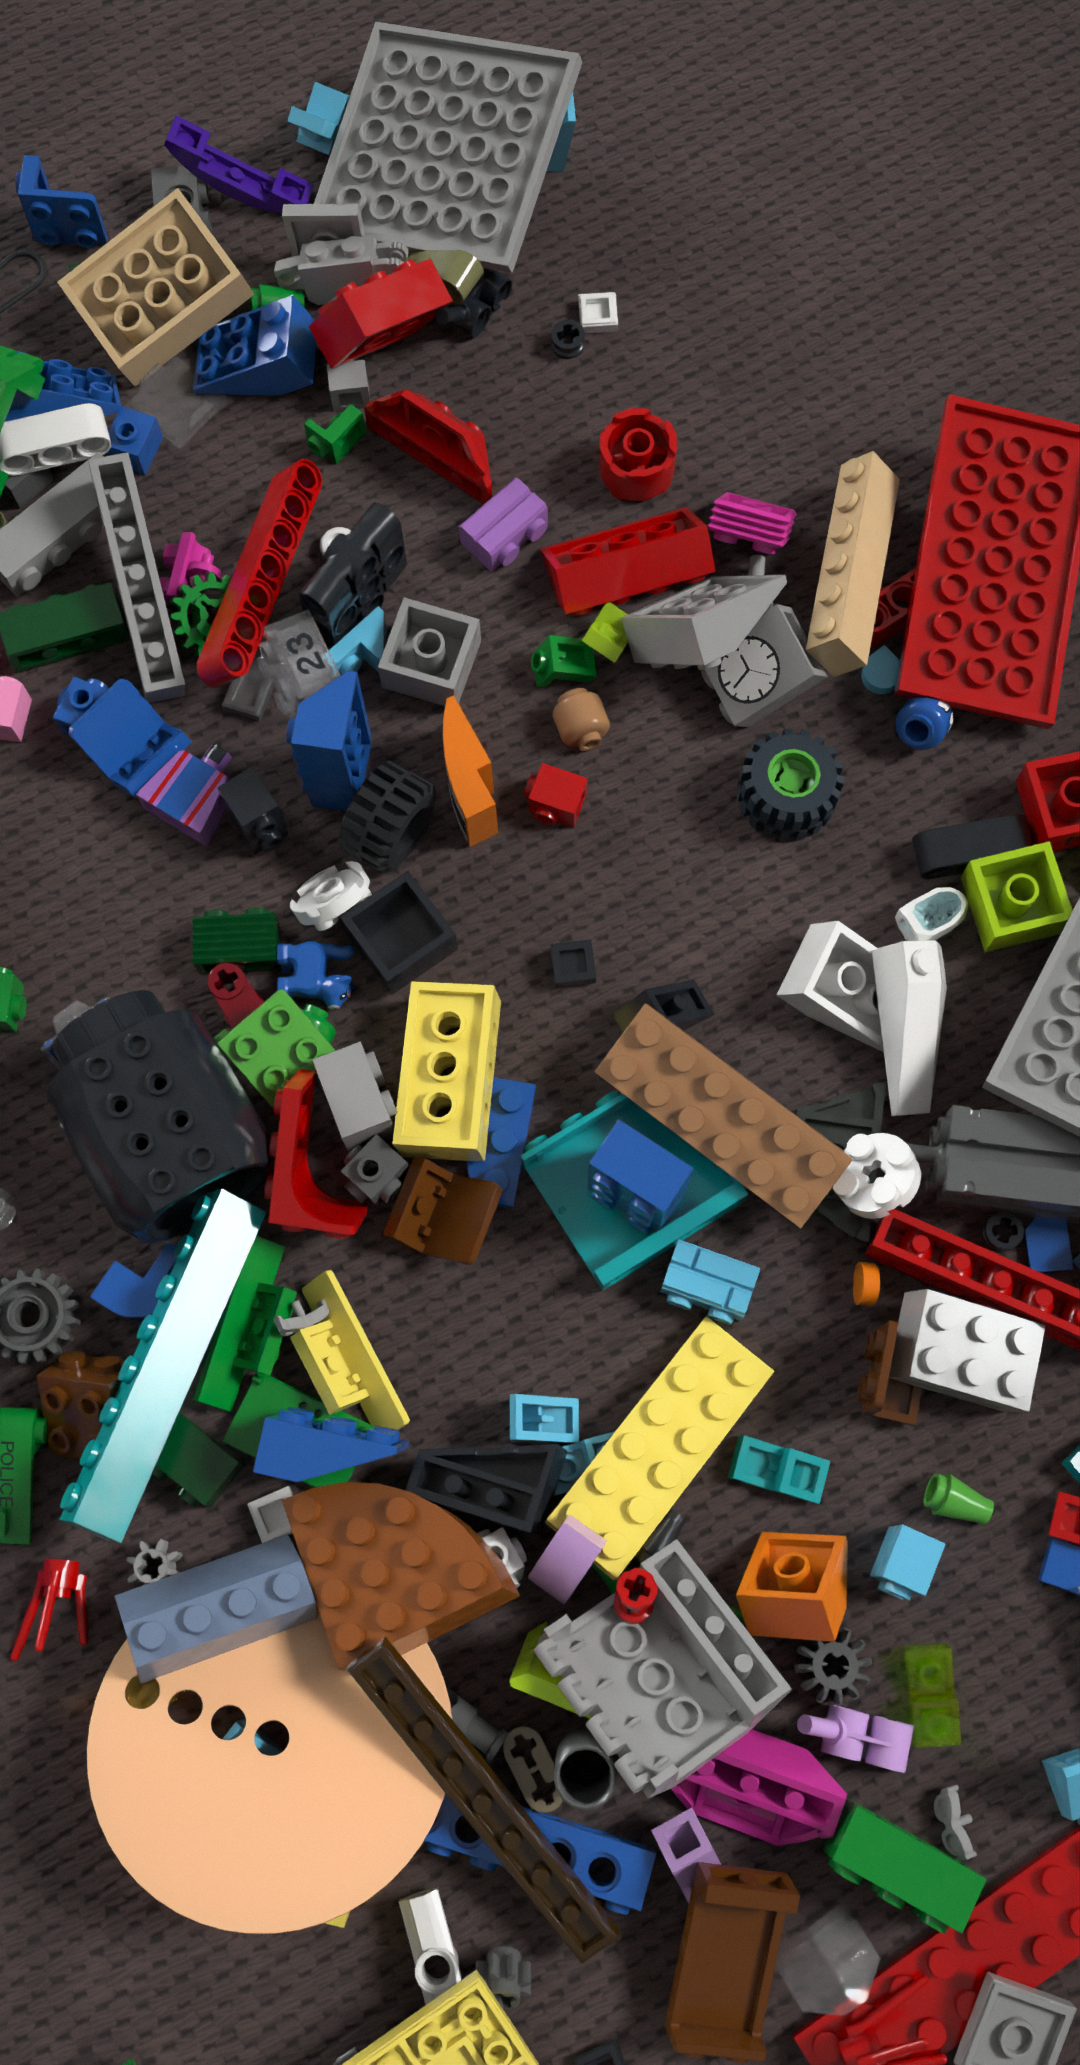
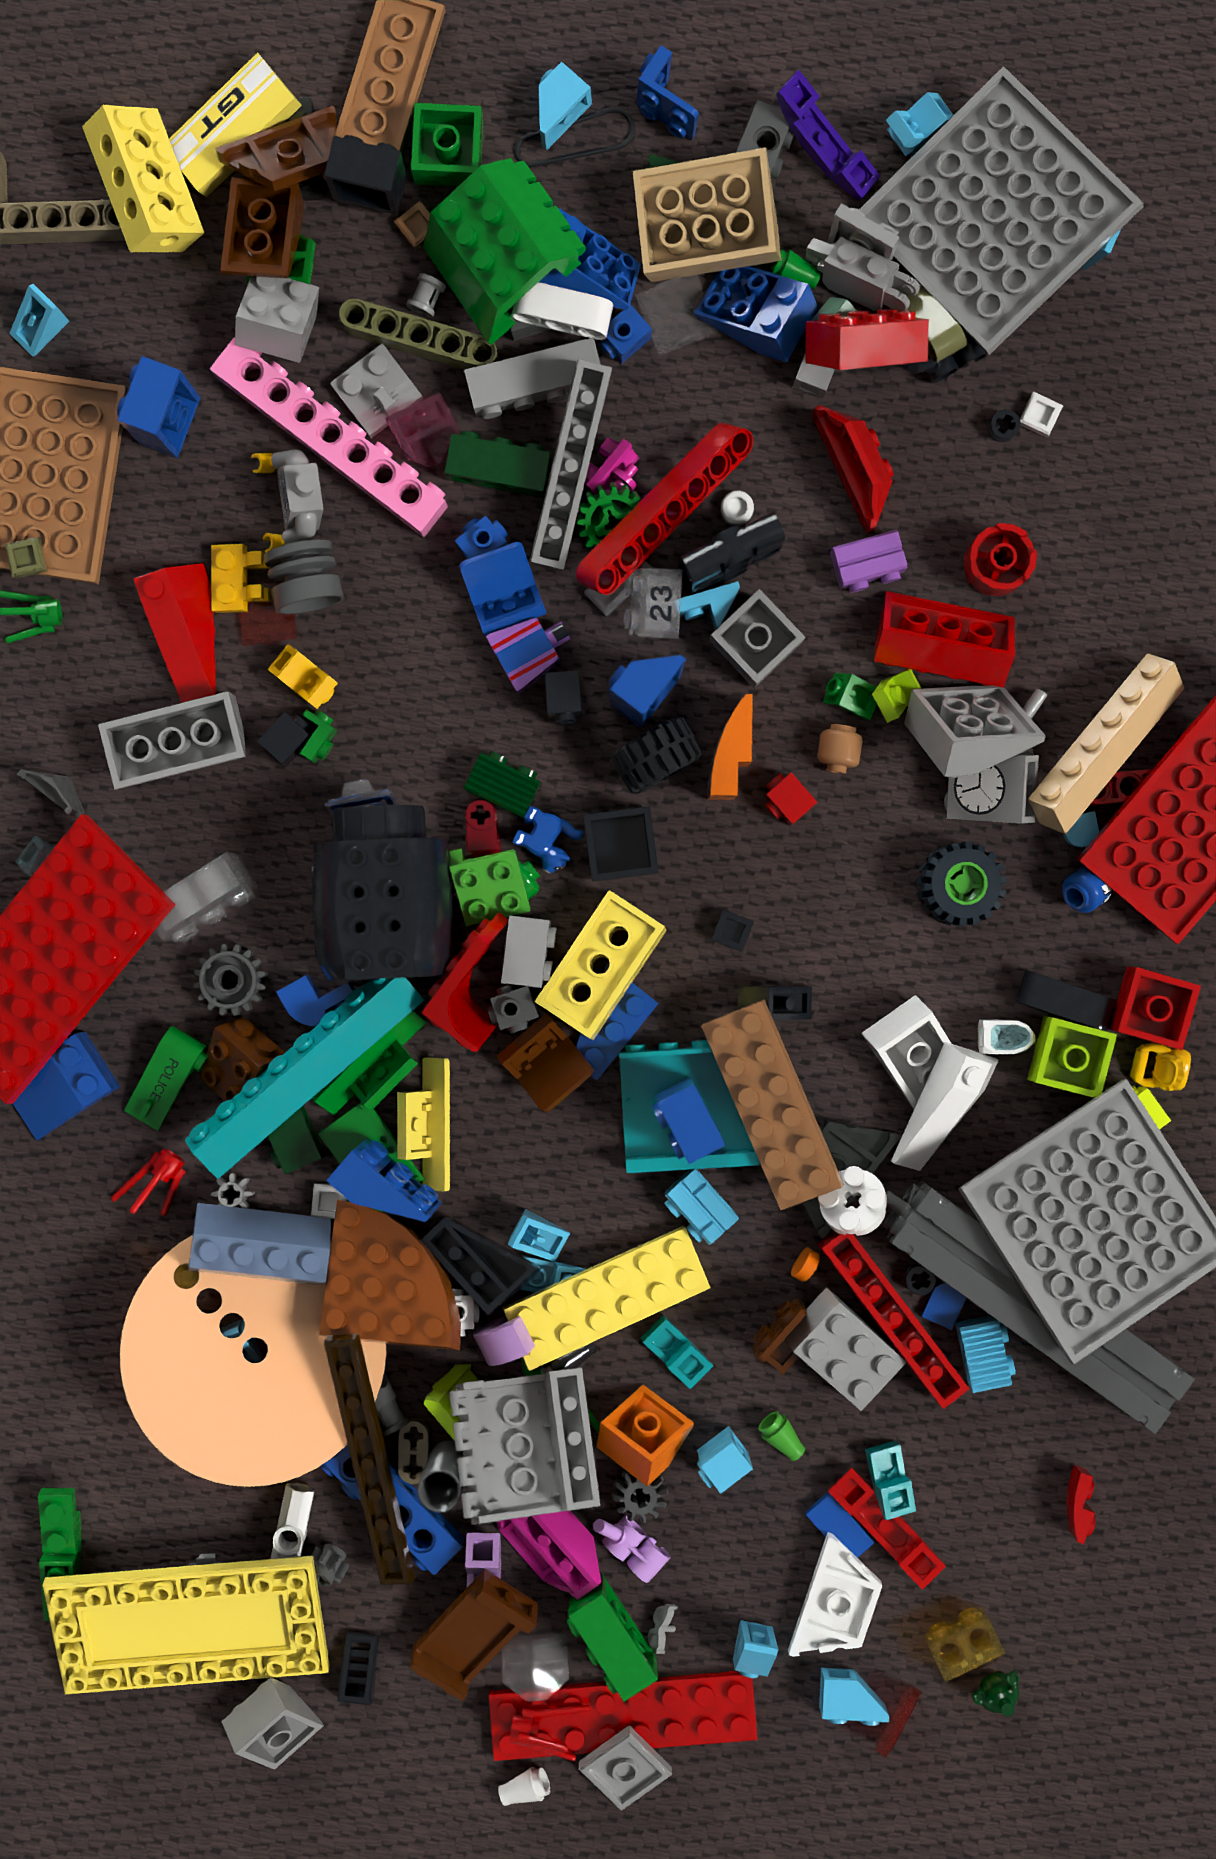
camera: 30 degrees right, 15 degrees up
(292, 1325) = (414, 1085): light grey piece -> none
(330, 895) = (600, 796): white plate -> none
(340, 436) = (787, 415): green bracket -> none
(643, 1607) = (524, 1388): red bush -> none
(751, 520) = (1052, 664): dark pink brick -> none
(932, 1695) = (693, 1544): clear neon green slope -> none

